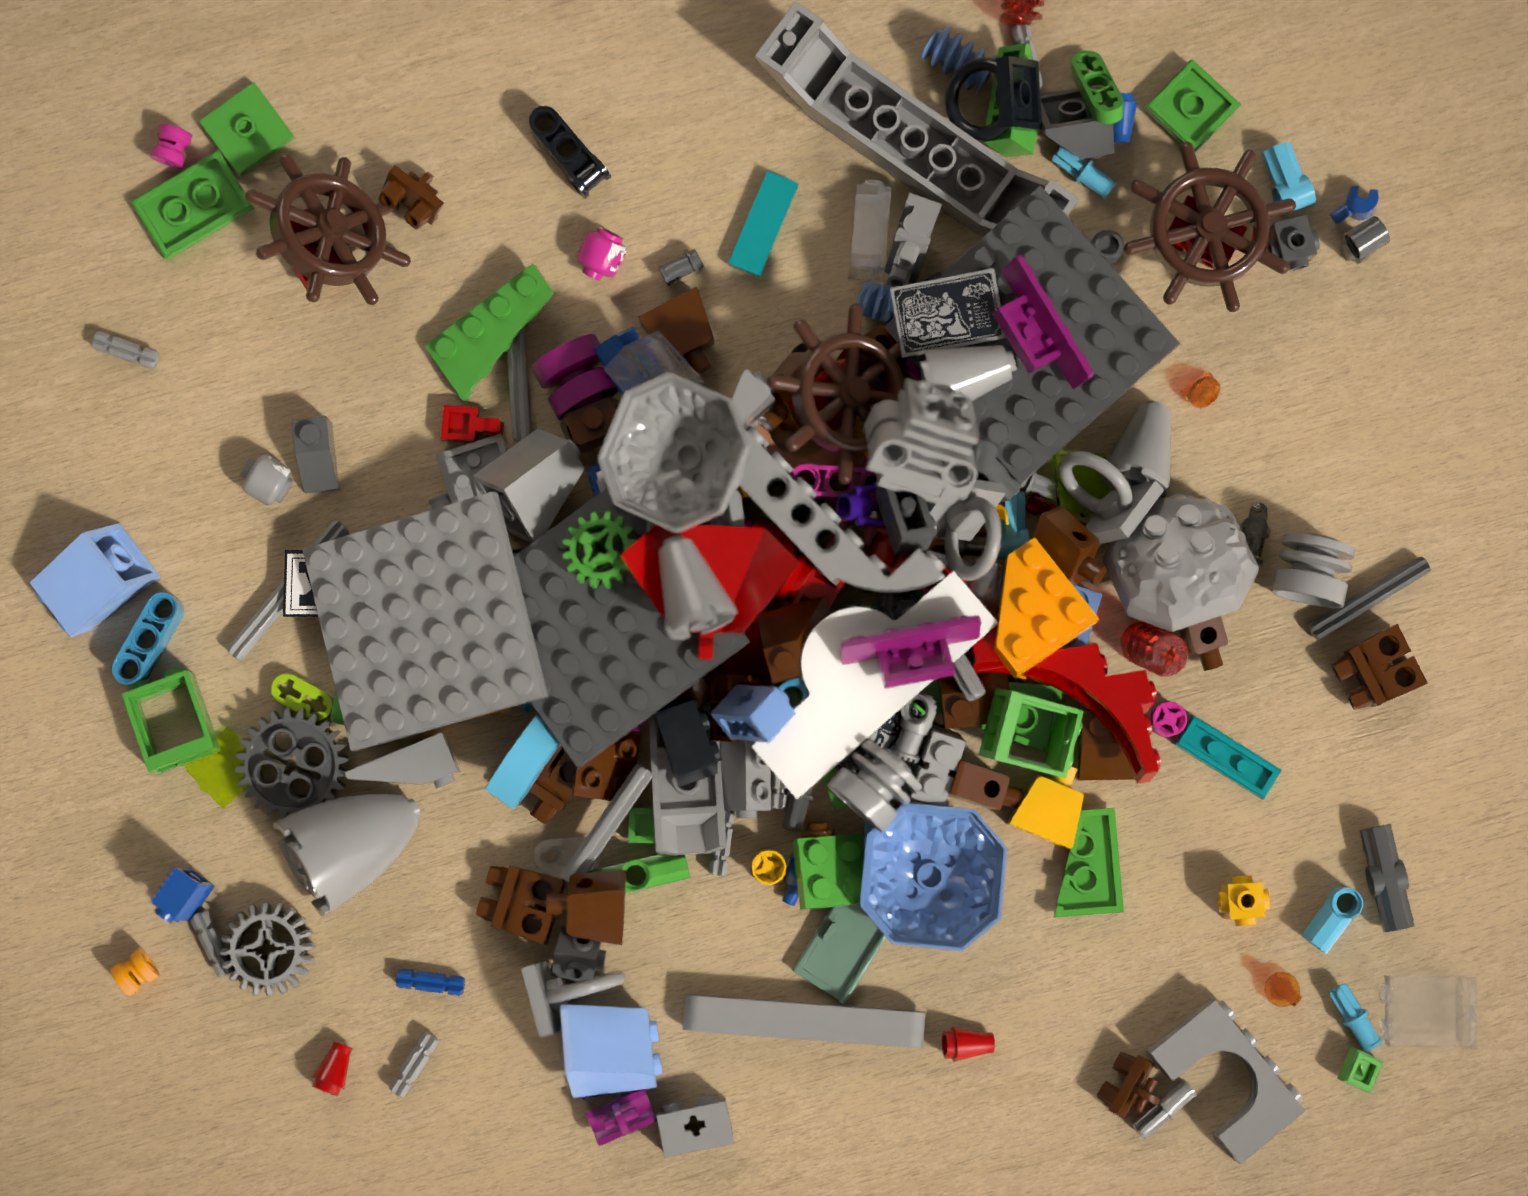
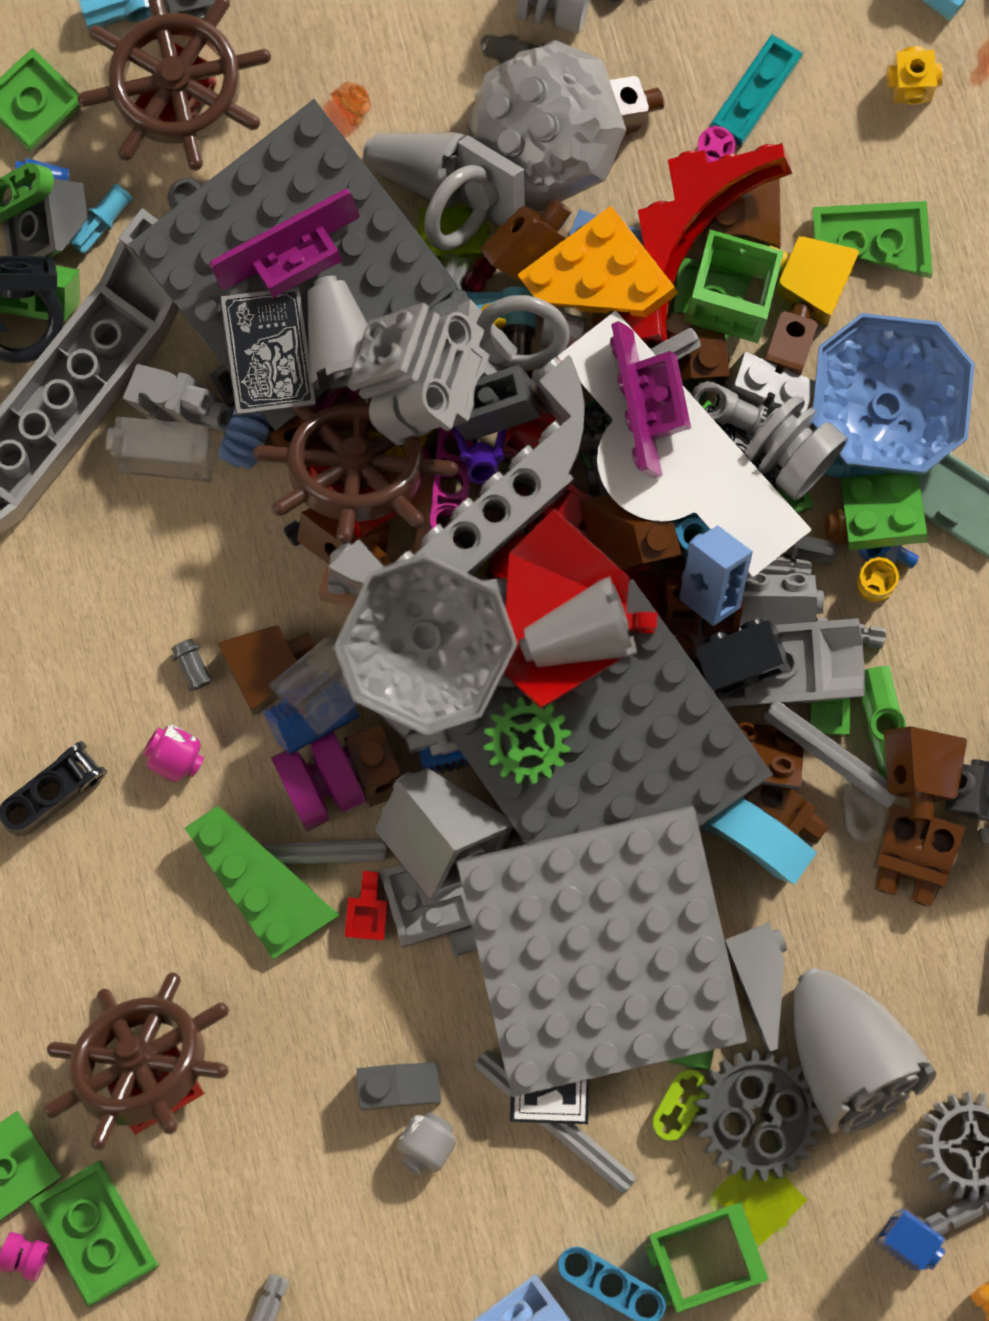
camera: 85 degrees left, 5 degrees down
(414, 193) = (95, 967): reddish brown hips -> none
(763, 224) = (145, 572): teal tile -> none
(1154, 649) = (640, 156): clear red piece -> none

